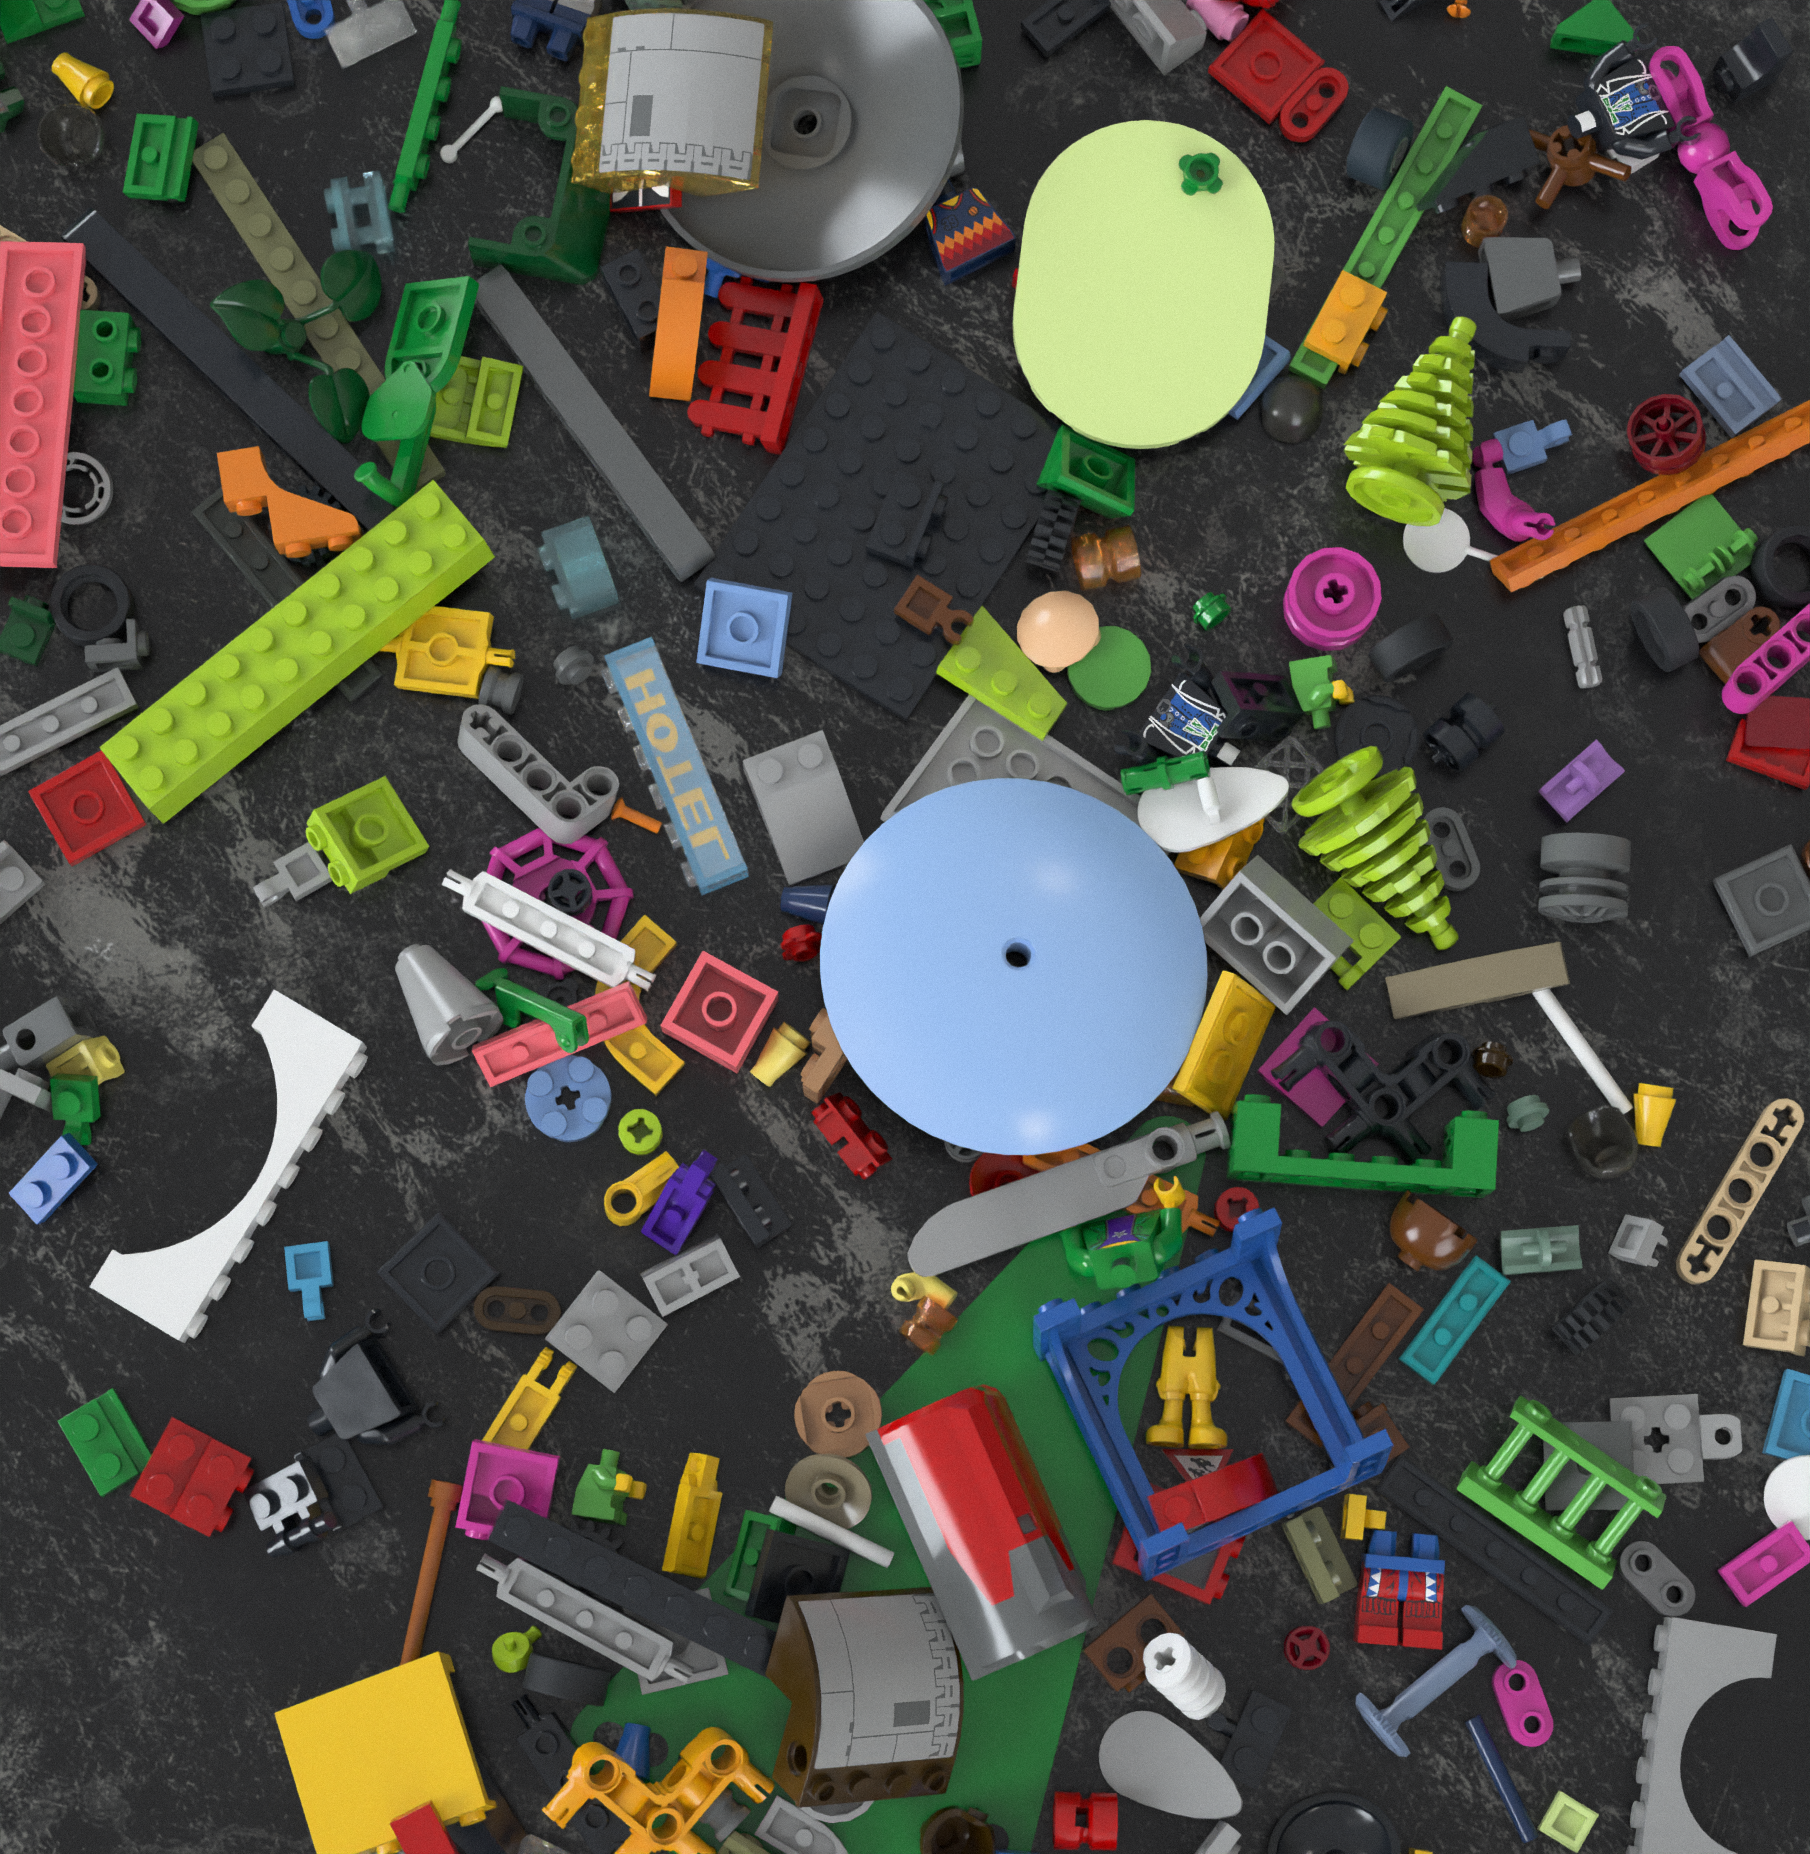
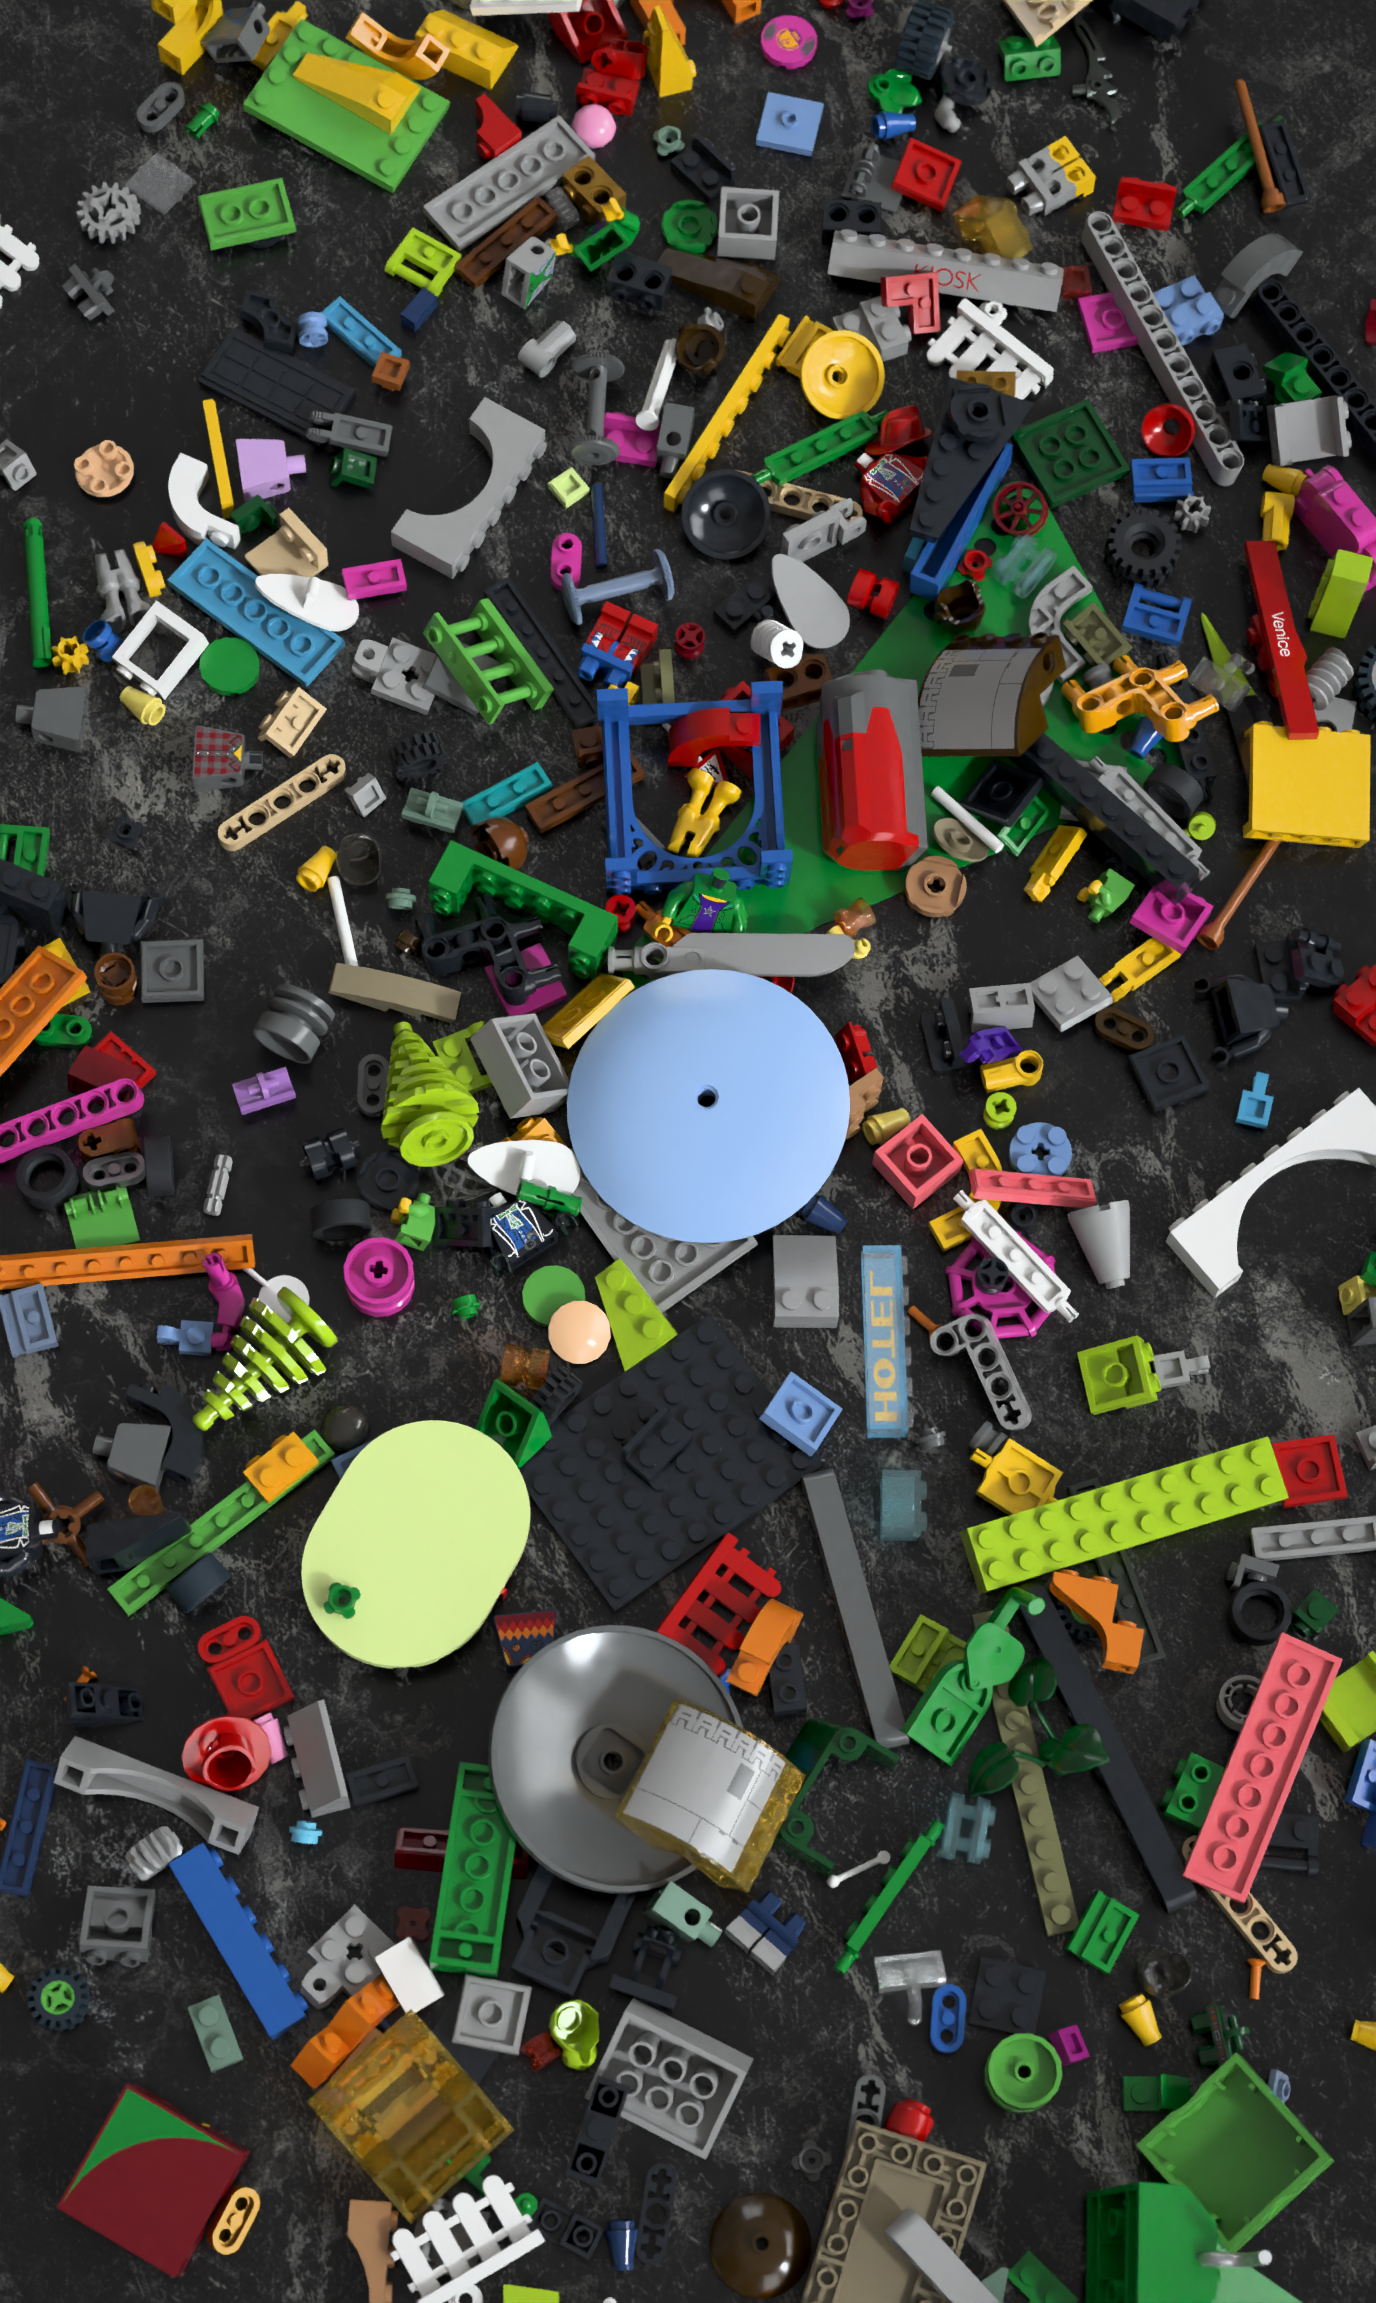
camera: 160 degrees left, 10 degrees down
(515, 999) = (1054, 1220): green piece -> none
(801, 943) = (843, 1190): red plate -> none
(928, 606) = (666, 1374): reddish brown plate -> none
(1656, 1580) = (446, 597): flat silver plate -> none
(1666, 434) = (91, 1300): dark red wheel -> none

